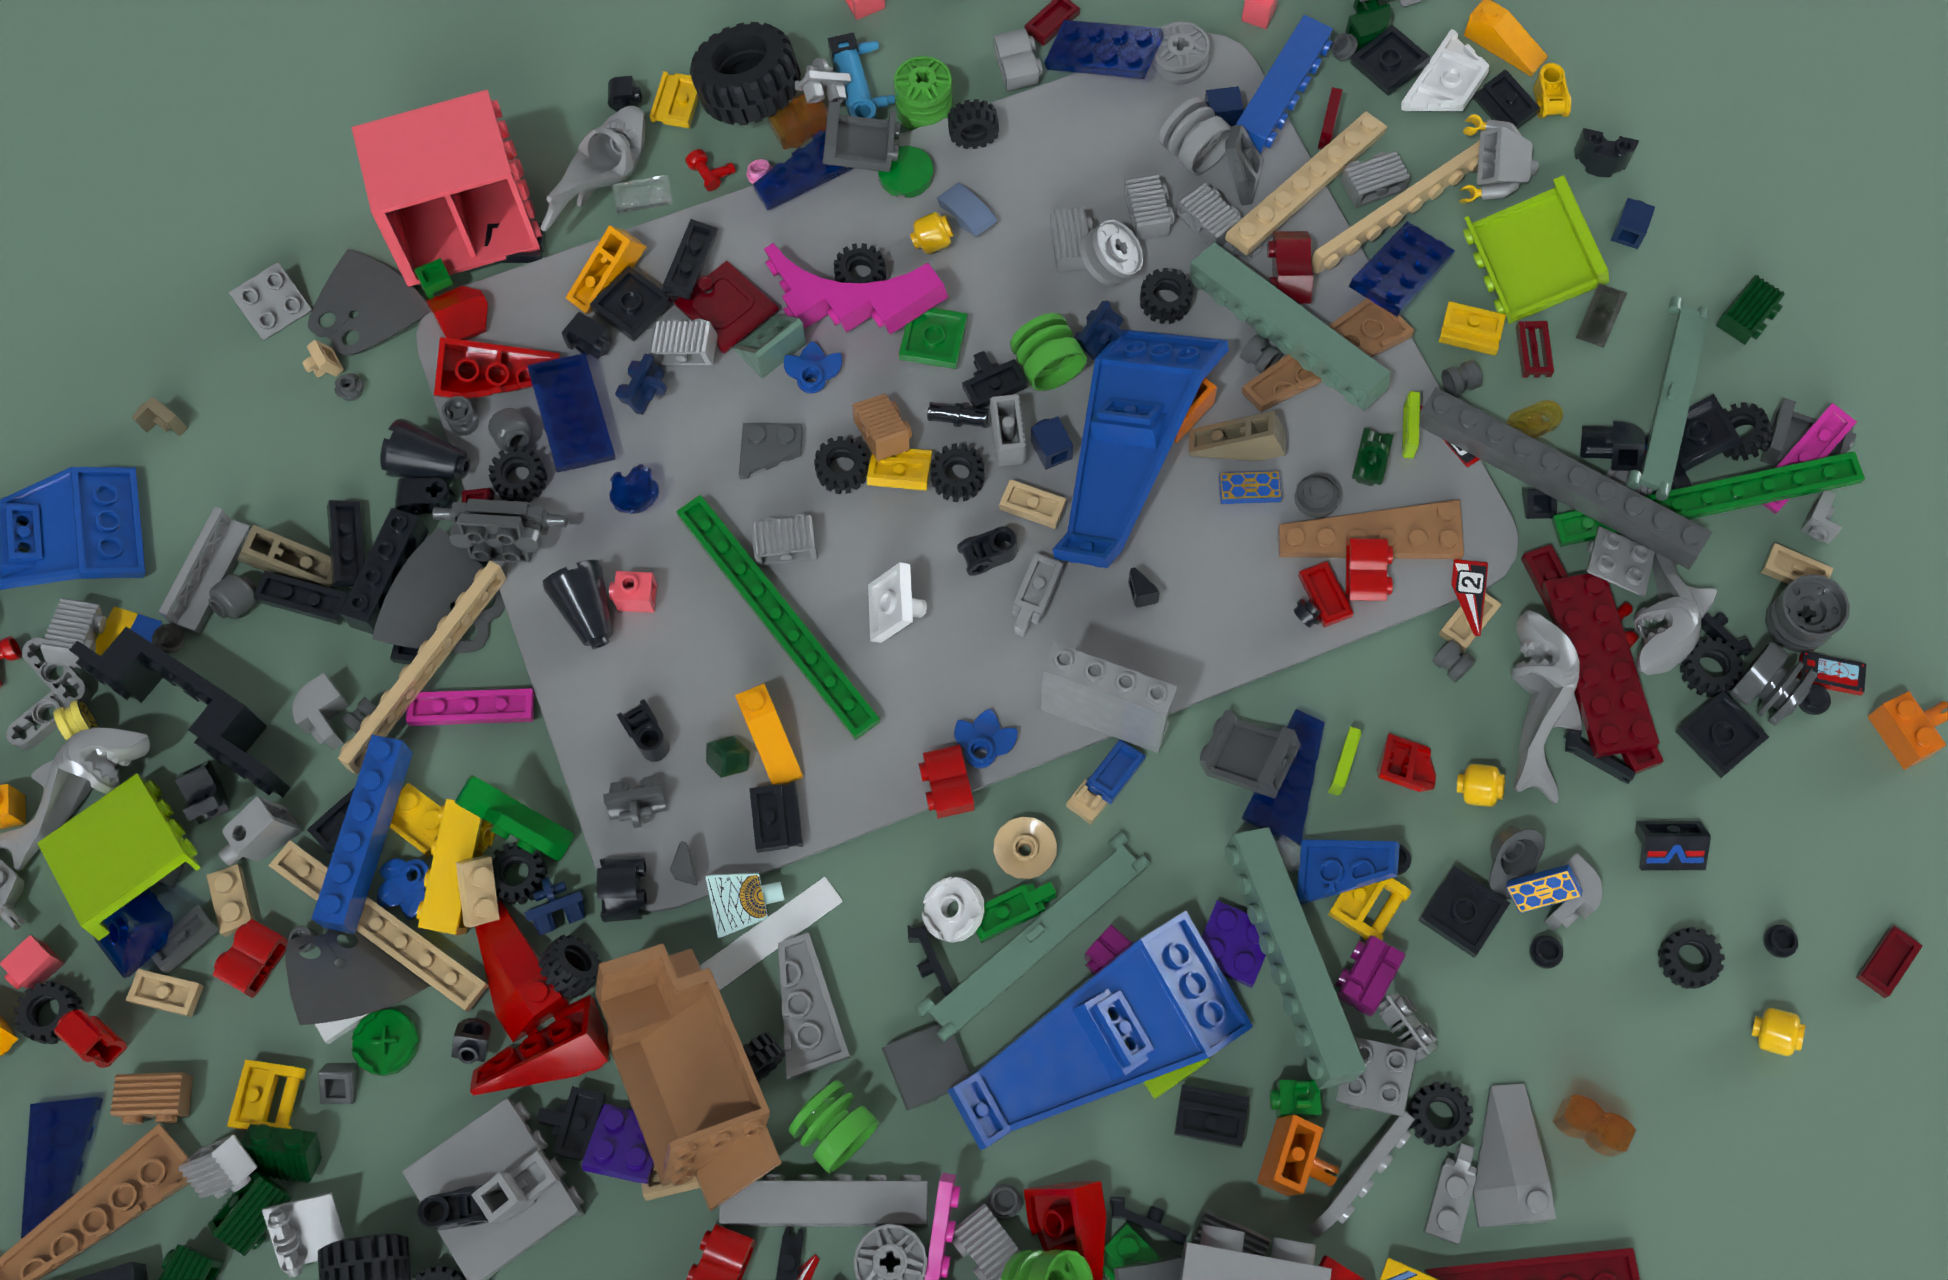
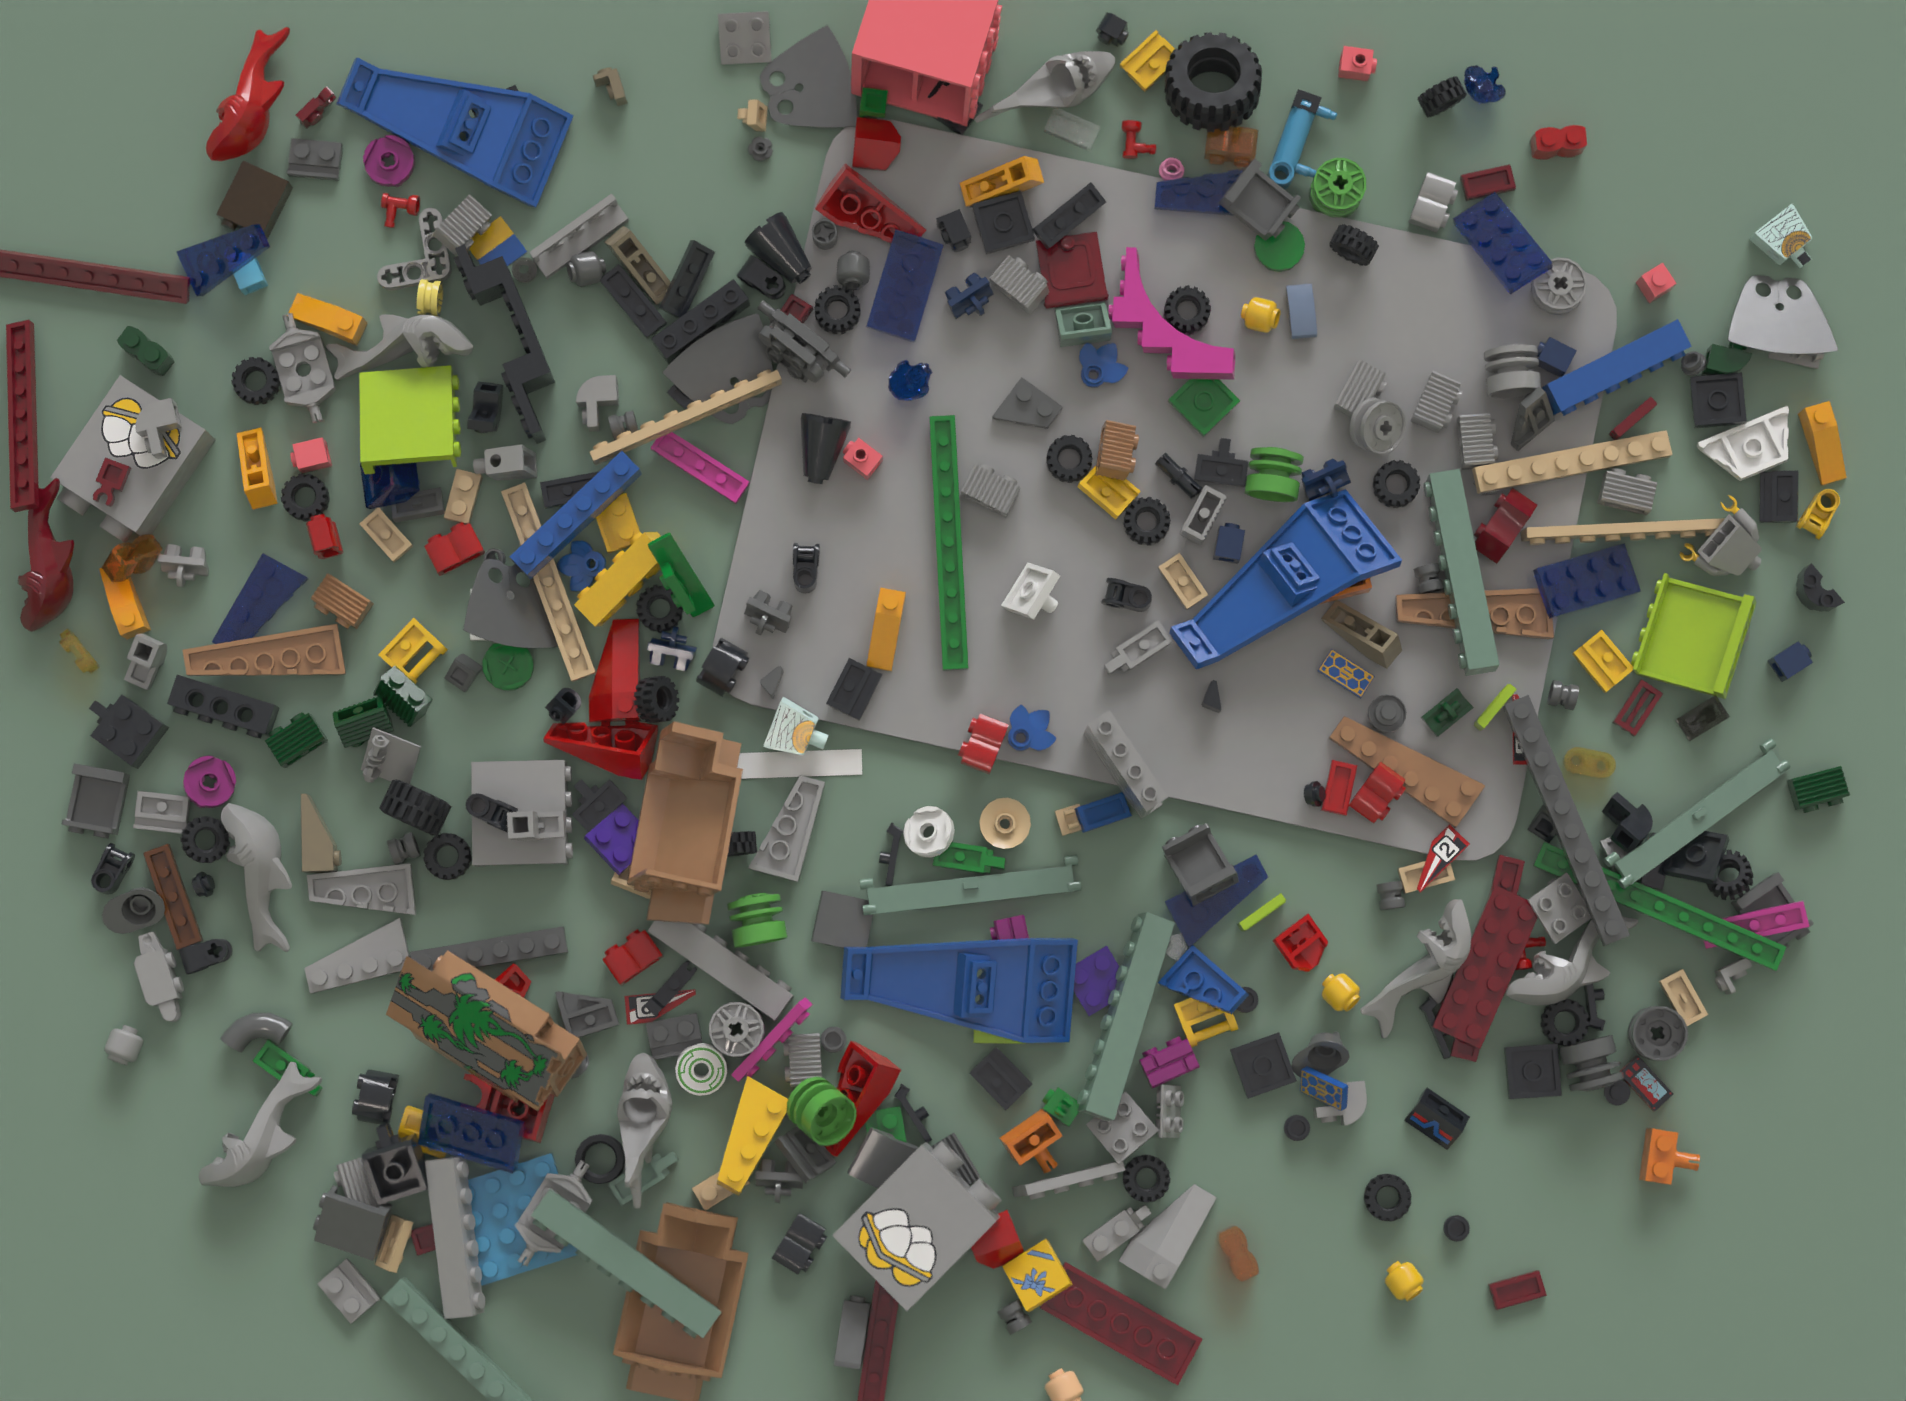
camera: 30 degrees right, 15 degrees up
(218, 1168) = (359, 681): light grey brick -> none
(477, 891) = (627, 607): tan plate -> none
(727, 756) = (849, 623): clear green slope -> none
(821, 80) = (1273, 137): light grey hips -> none

